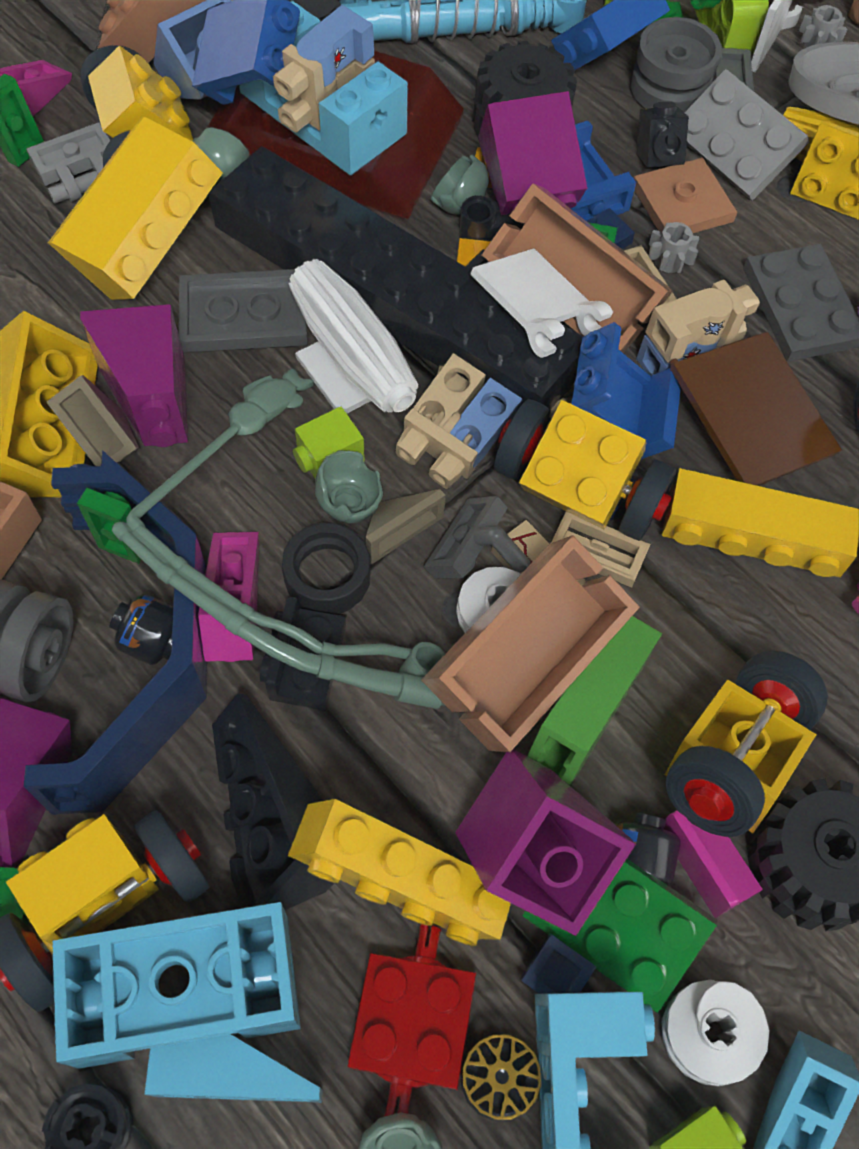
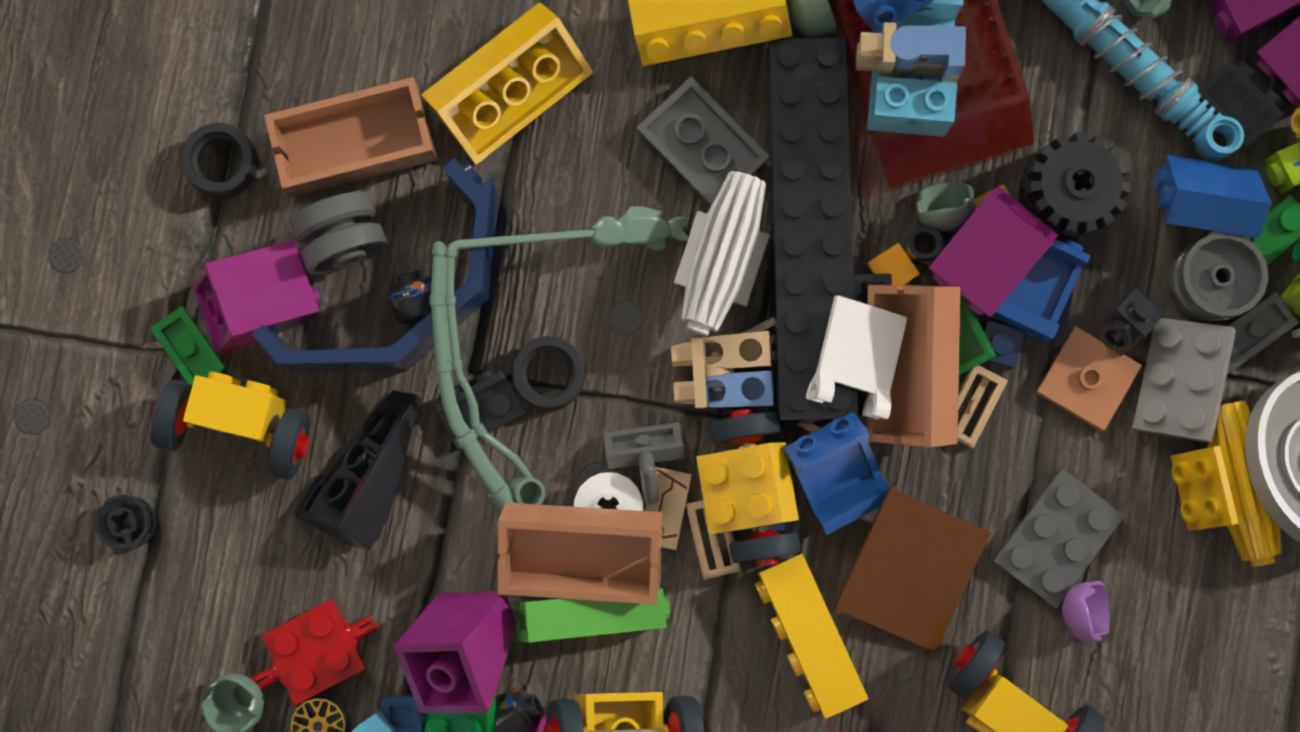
camera: 55 degrees right, 20 degrees up
(94, 421) = (529, 133): dark tan slope -> none
(100, 514) = (460, 216): green plate -> none
(111, 992) = (257, 535): medium azure plate -> none
(143, 367) = (586, 132): magenta slope -> none
(223, 1070) = (207, 564): medium azure slope -> none
(233, 567) = (491, 322): dark pink slope -> none
(325, 436) = (638, 298): lime brick -> none
(347, 487) = (615, 340): sand green hair -> none
(398, 870) = (373, 578): yellow brick -> none
(401, 520) = (622, 387): dark tan slope -> none
(673, 247) = (1017, 416): light grey gear -> none
(696, 325) = (943, 482): tan hips -> none

